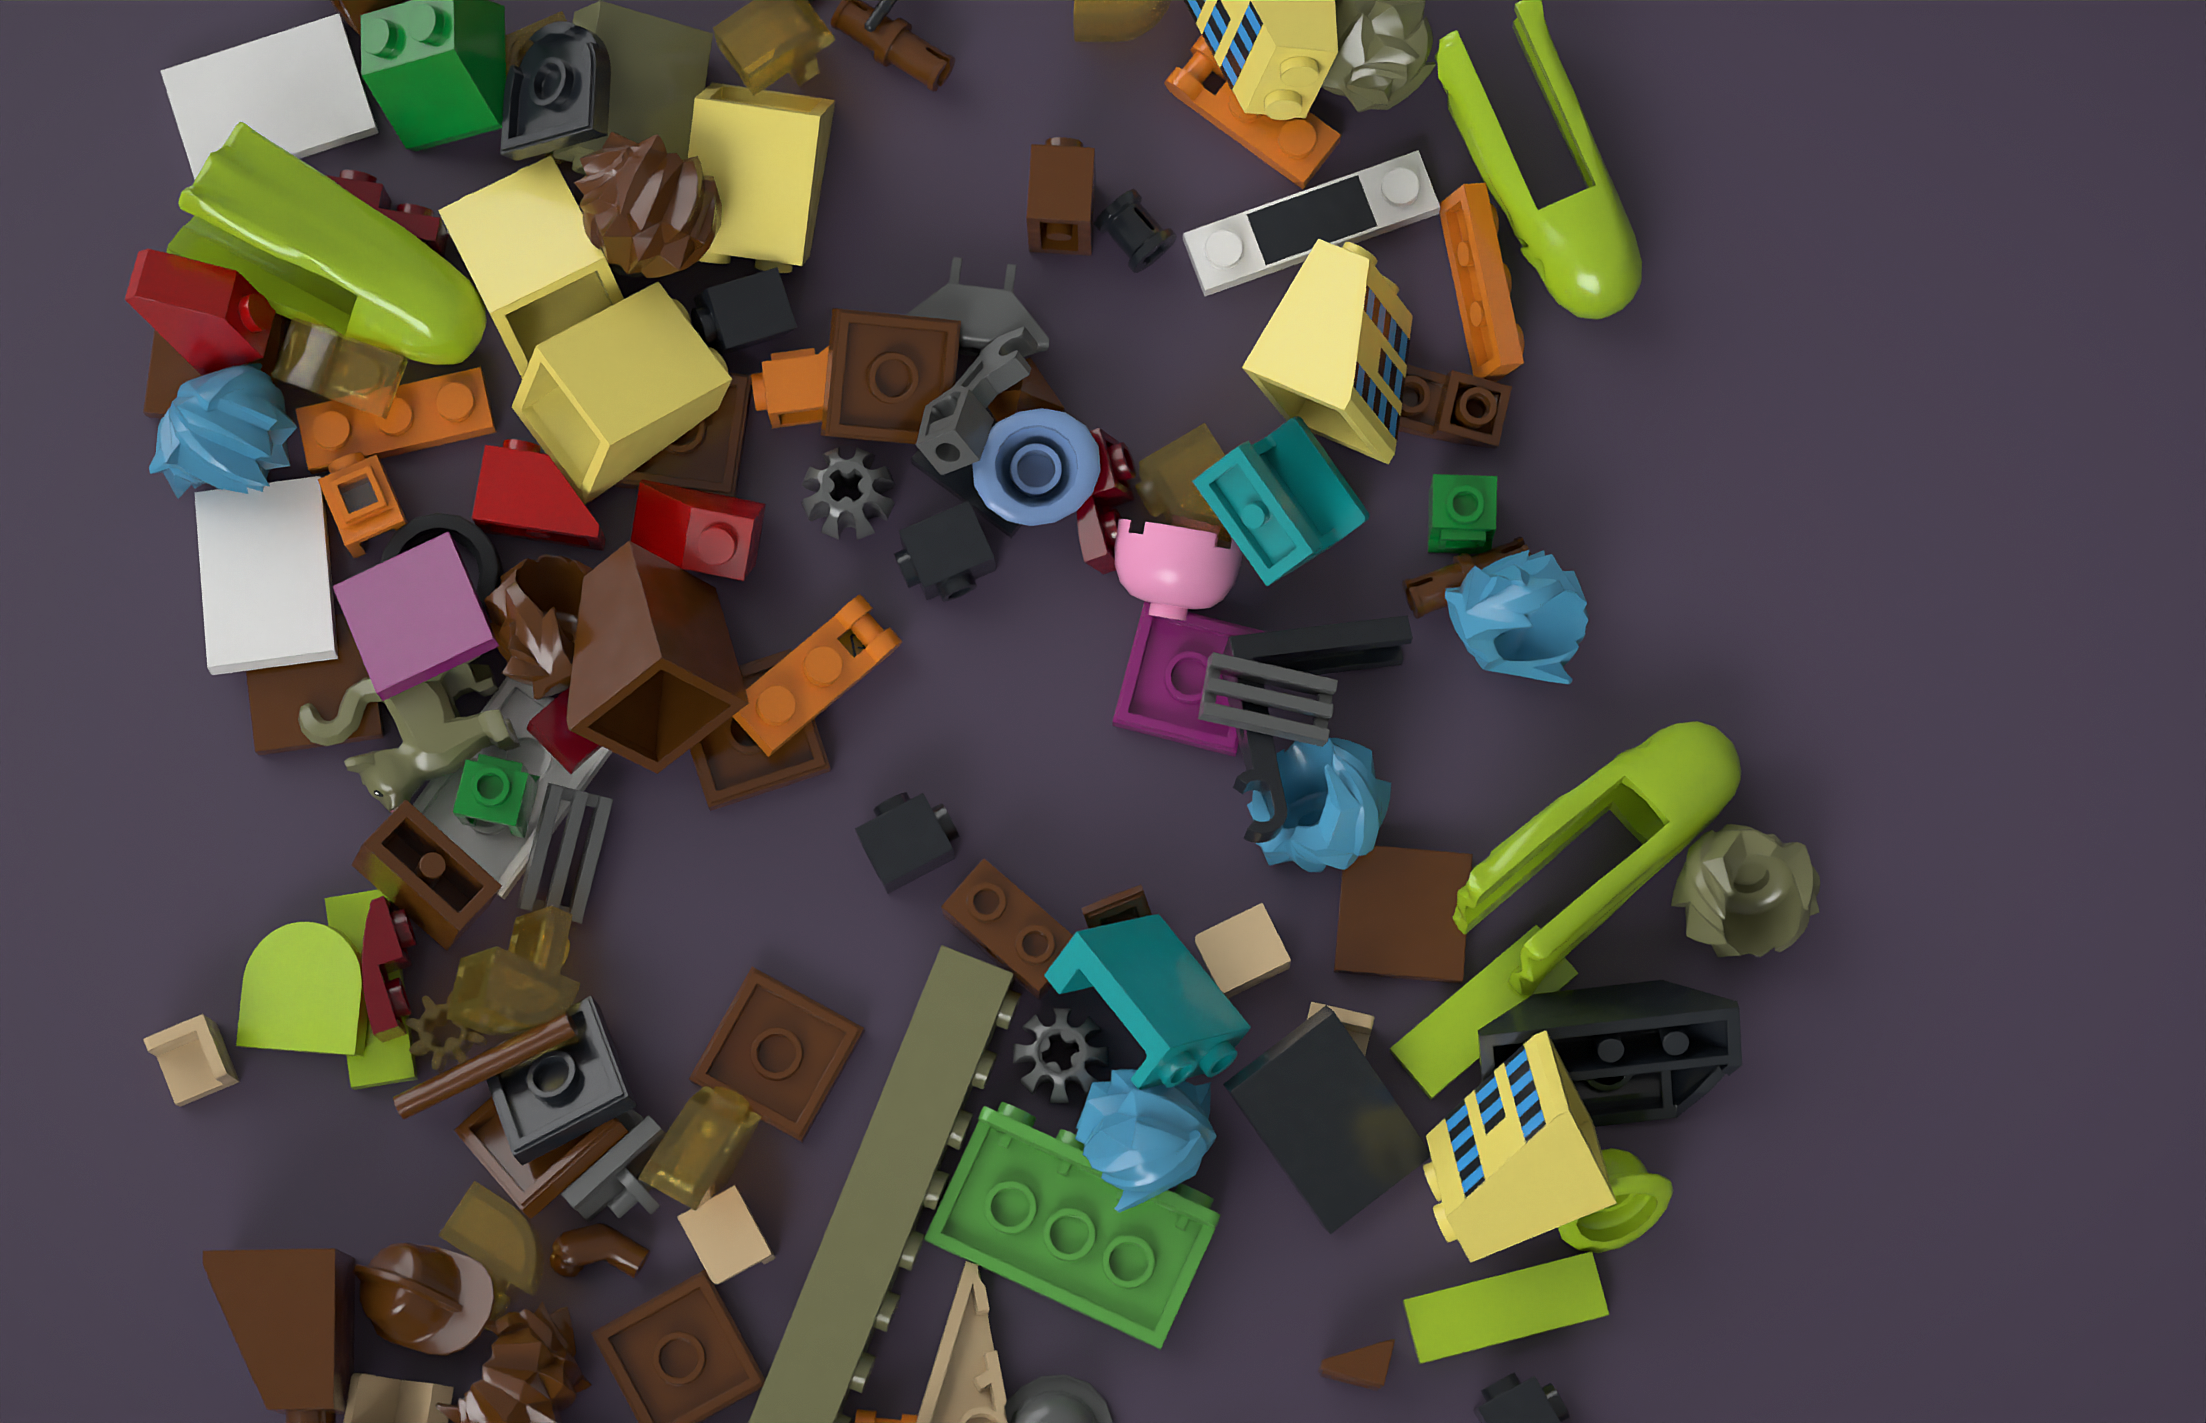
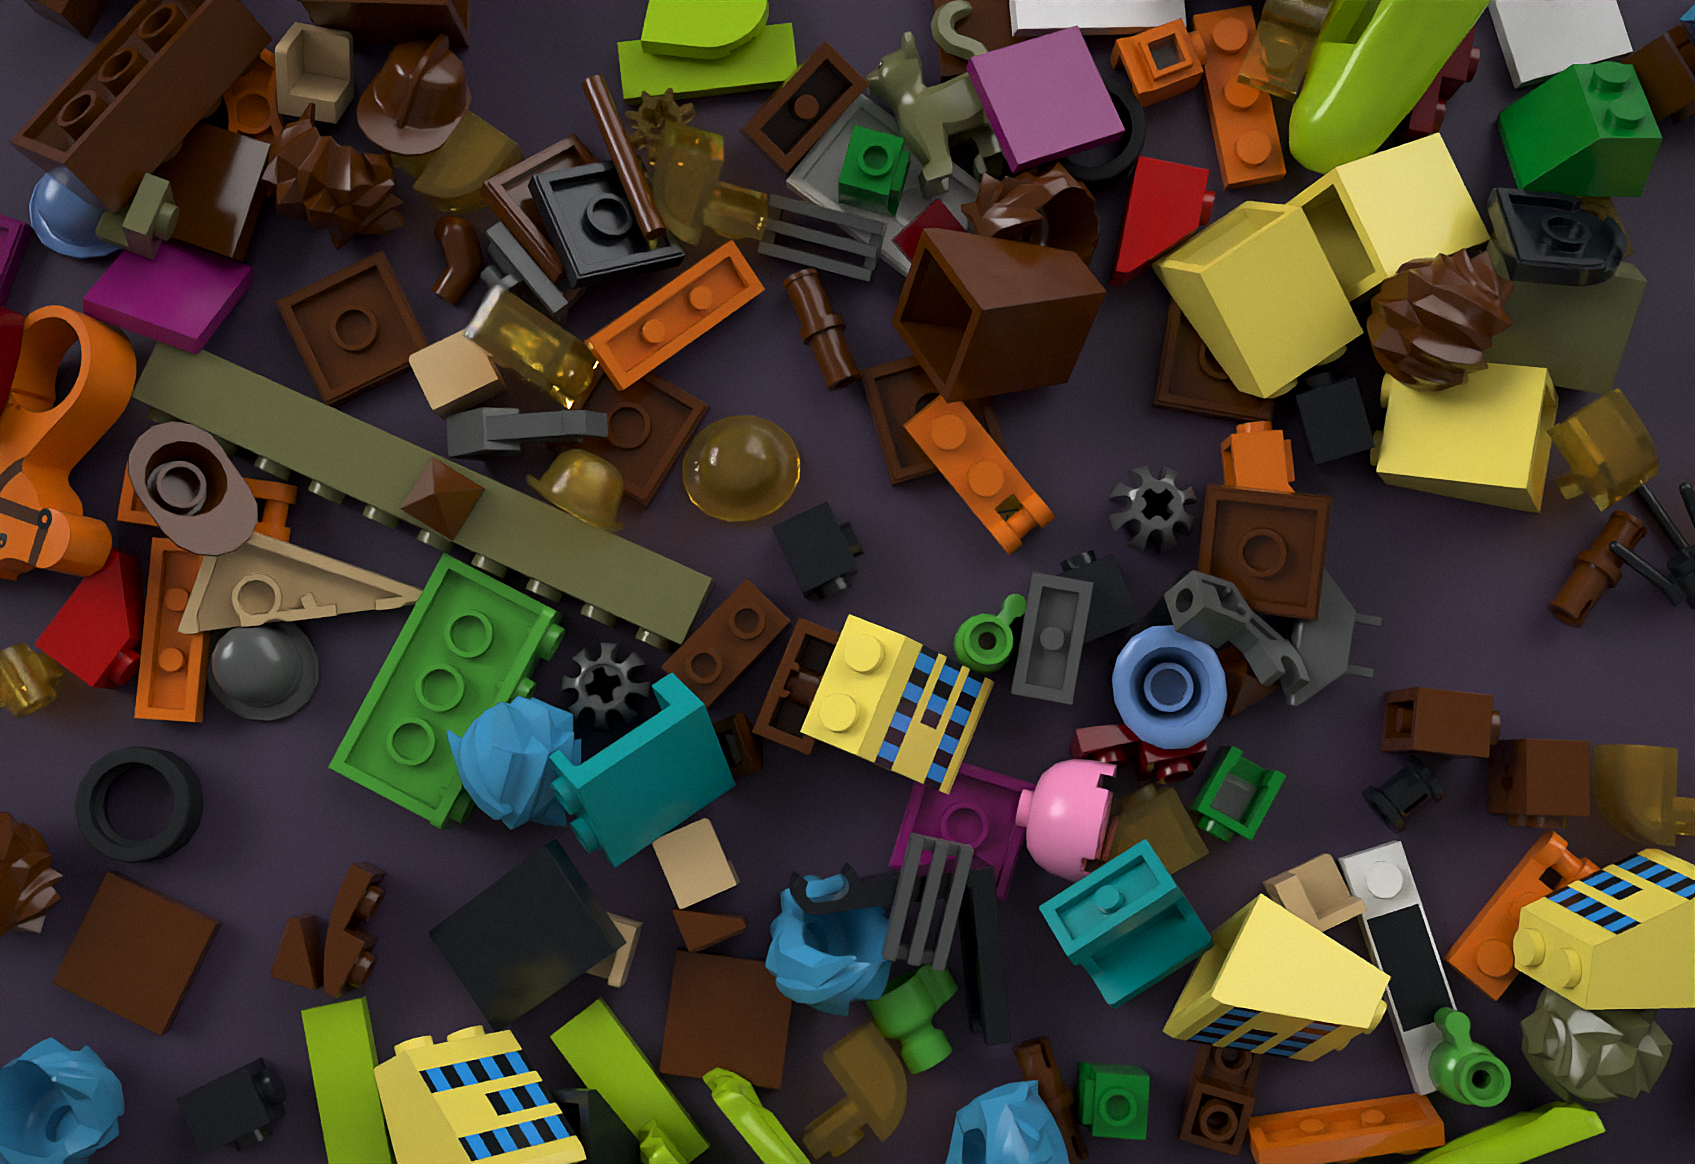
camera: 90 degrees right, 5 degrees up
(385, 951) = (741, 68): dark red slope -> none
(657, 1004) = (674, 315): none -> orange plate
(665, 849) = (822, 329): none -> reddish brown pin
(698, 529) = (1122, 369): red slope -> none
(790, 1178) = (501, 432): none -> dark grey piece
(818, 931) = (741, 468): none -> clear yellow hat
(849, 1088) = (583, 487): none -> clear yellow hat
(868, 1234) = (442, 498): none -> reddish brown slope
(989, 590) = (1052, 637): none -> dark grey panel
(994, 658) = (986, 640): none -> bright green piece
(1052, 841) = (796, 687): none -> reddish brown brick
(1068, 740) = (897, 704): none -> light yellow slope
(1115, 98) = (1539, 781): none -> reddish brown brick
(1145, 400) = (1235, 796): none -> green window
(1239, 316) = (1315, 893): none -> tan panel
(1310, 936) = (707, 927): none -> reddish brown slope
(1353, 1313) = (347, 946): none -> reddish brown slope
(1386, 724) = (907, 1015): none -> bright green piece
(1407, 166) = (1463, 1067): none -> bright green piece
(1463, 755) = (875, 1090): none -> clear yellow brick

